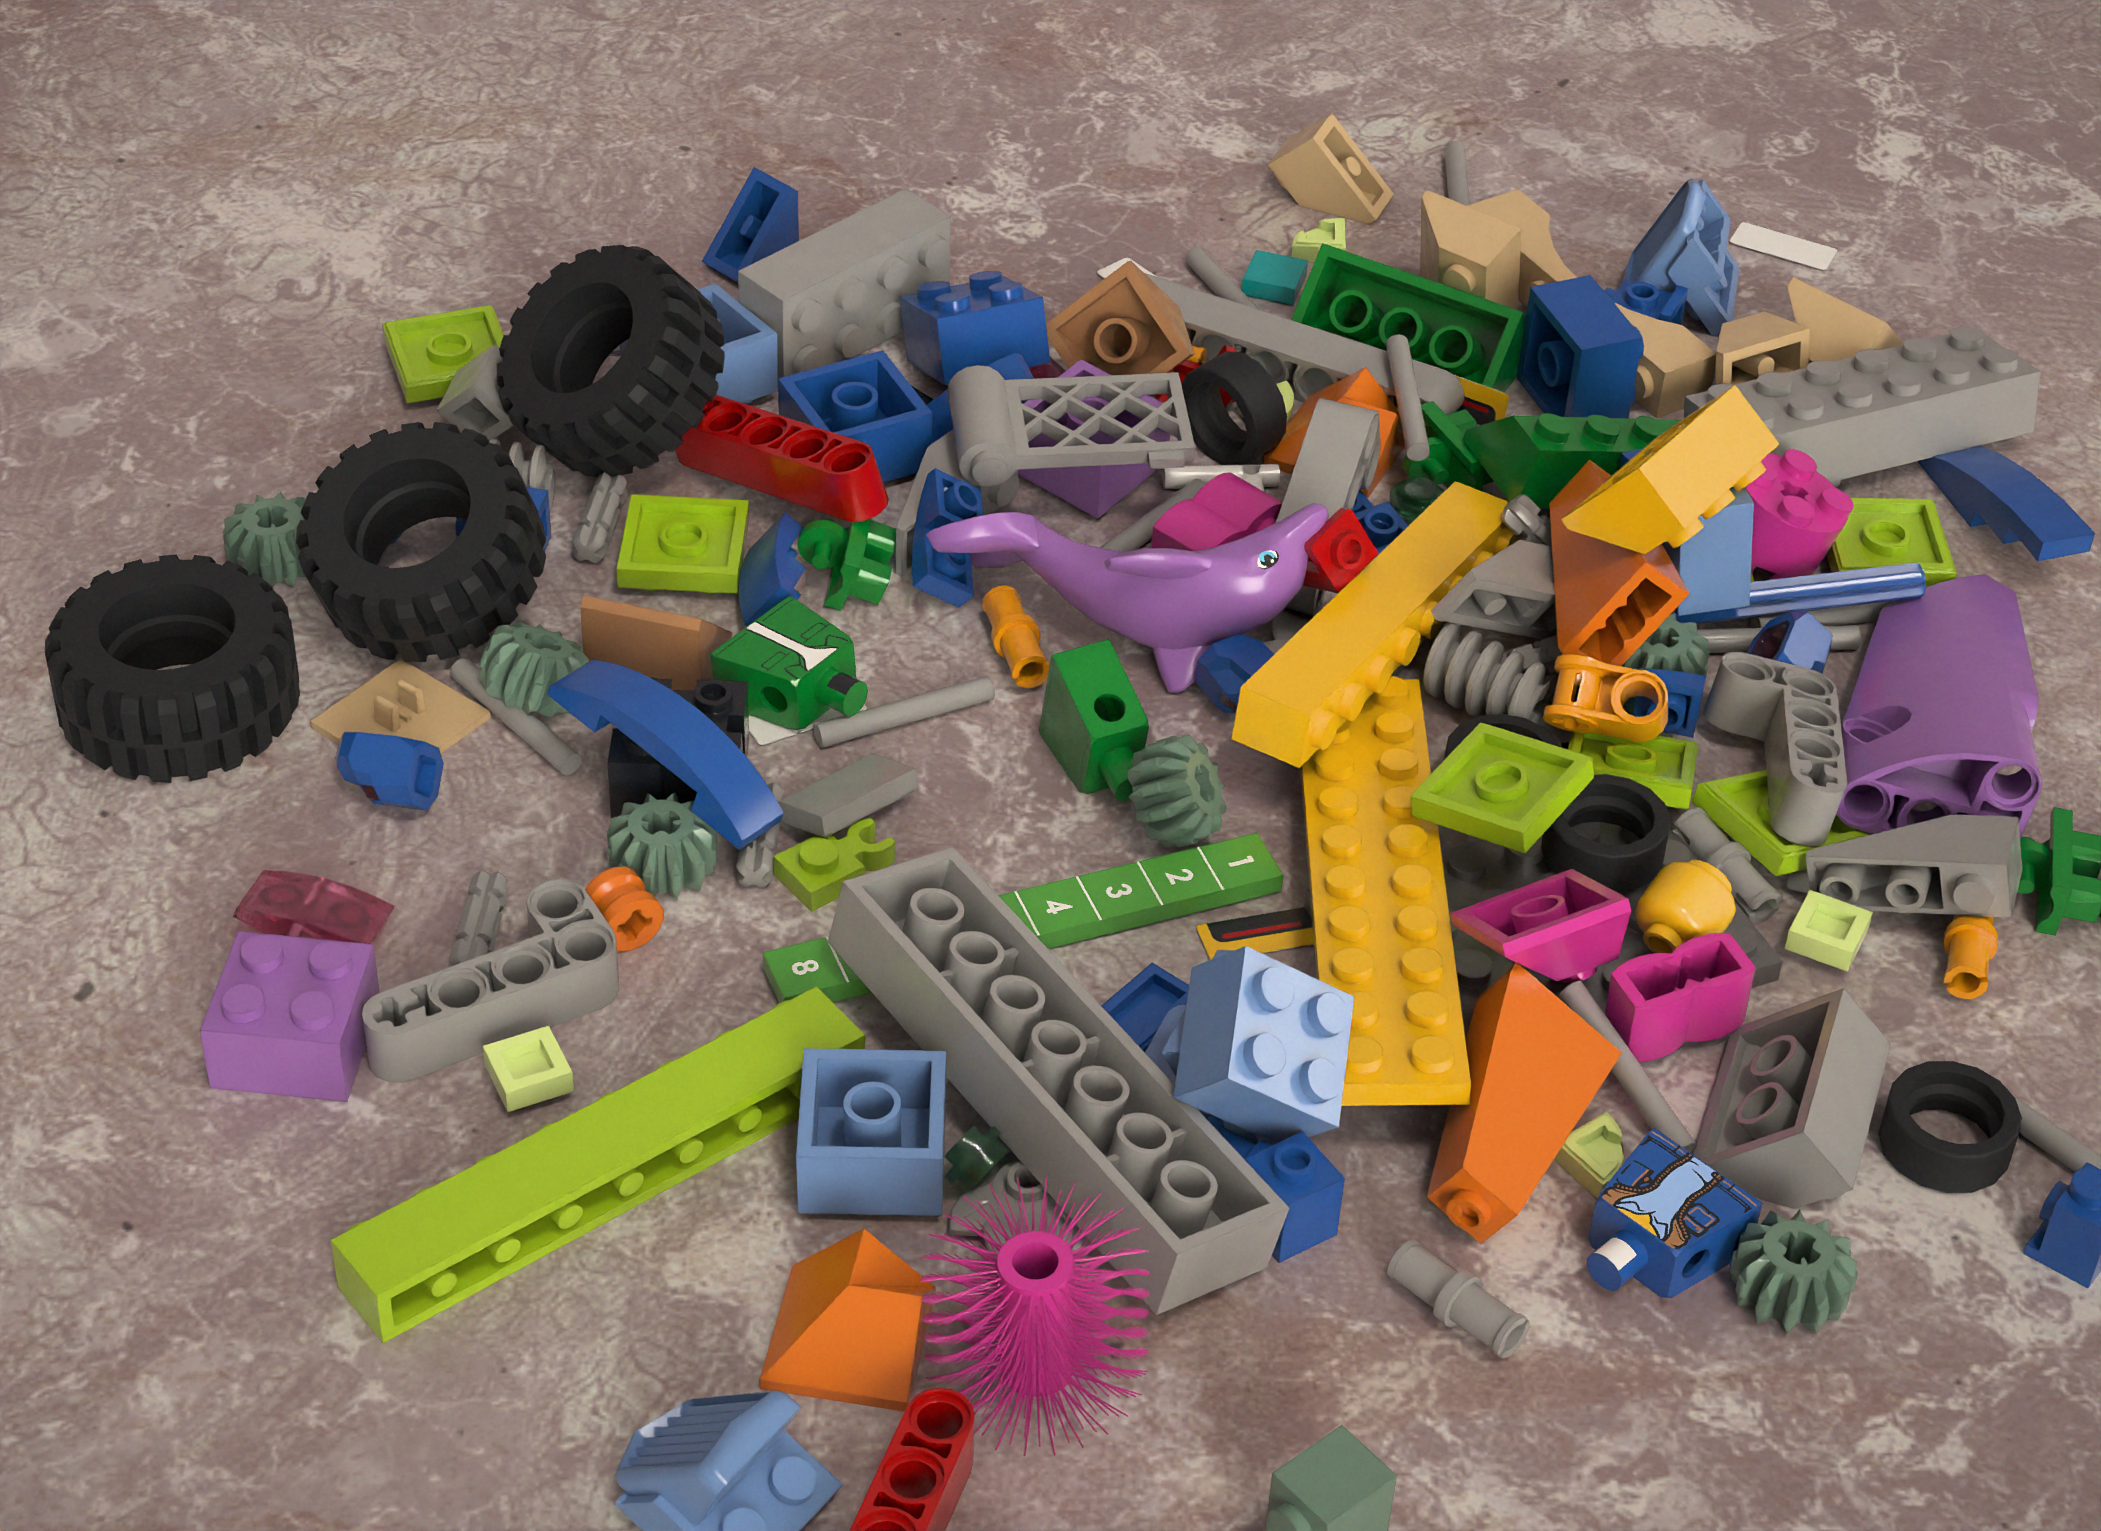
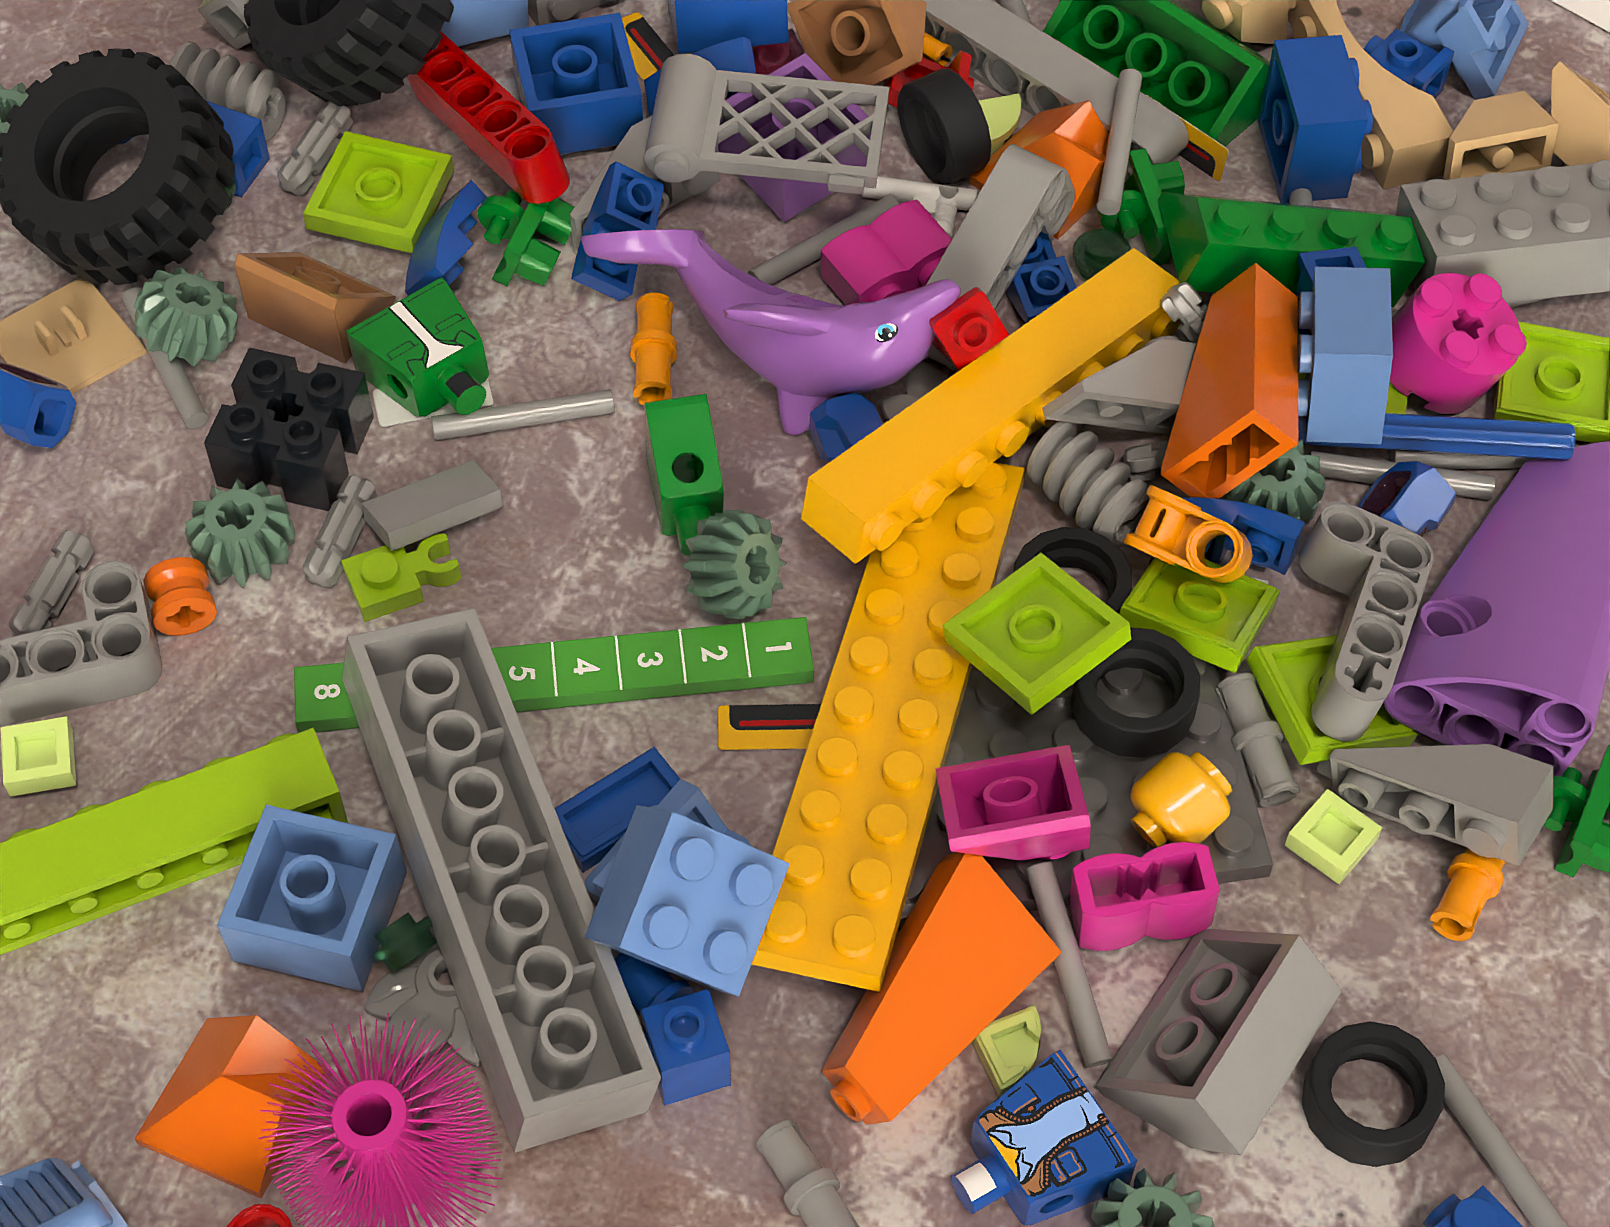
camera: 15 degrees right, 15 degrees up
(680, 737) = (266, 437): blue slope -> none
(1678, 478) = (1316, 319): yellow slope -> none

